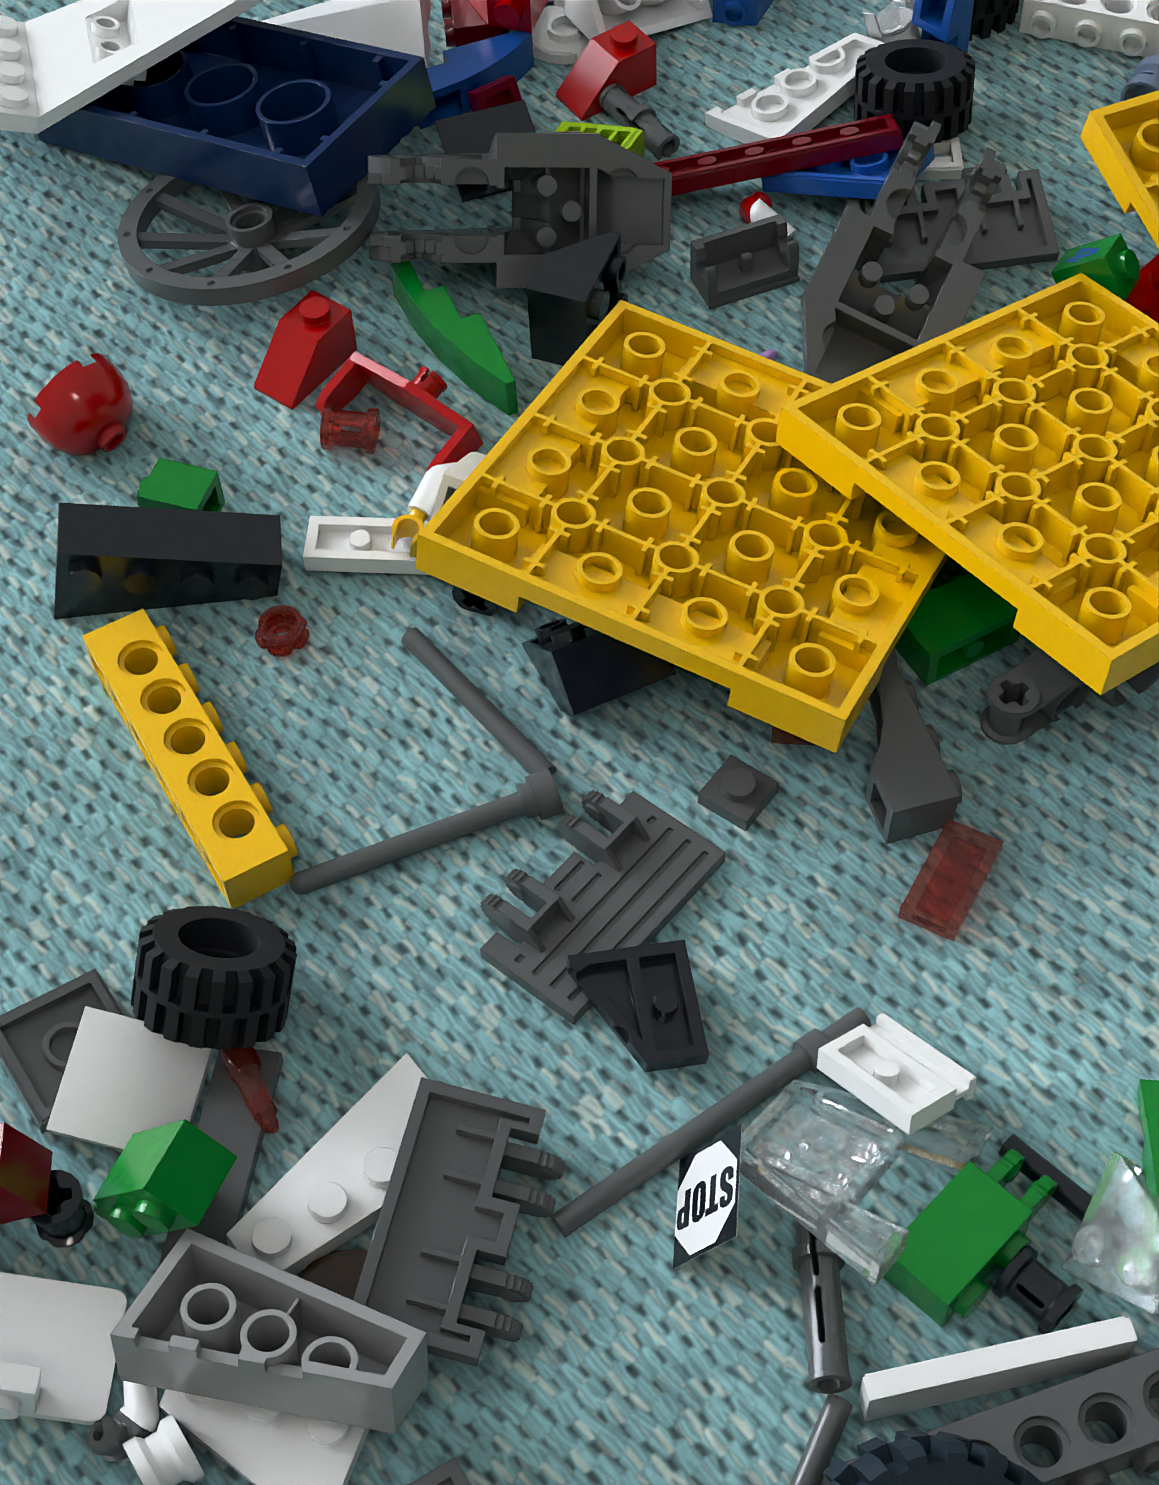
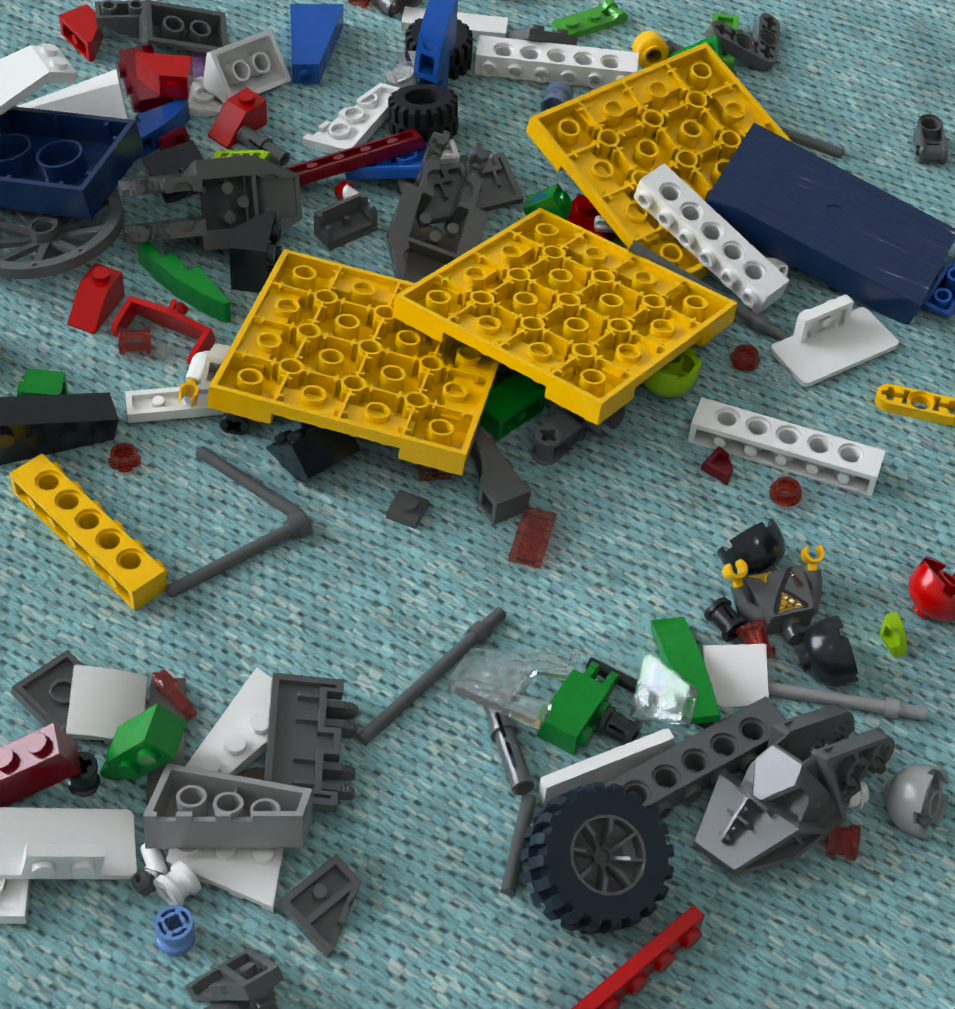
camera: 20 degrees left, 5 degrees down
(213, 977) = (142, 640): black tyre -> none
(621, 902) = (342, 586): dark grey hinge -> none
(646, 1001) = (383, 620): black wing -> none
(708, 1197) = (440, 708): sticker -> none
(896, 1073) = (525, 634): white plate -> none

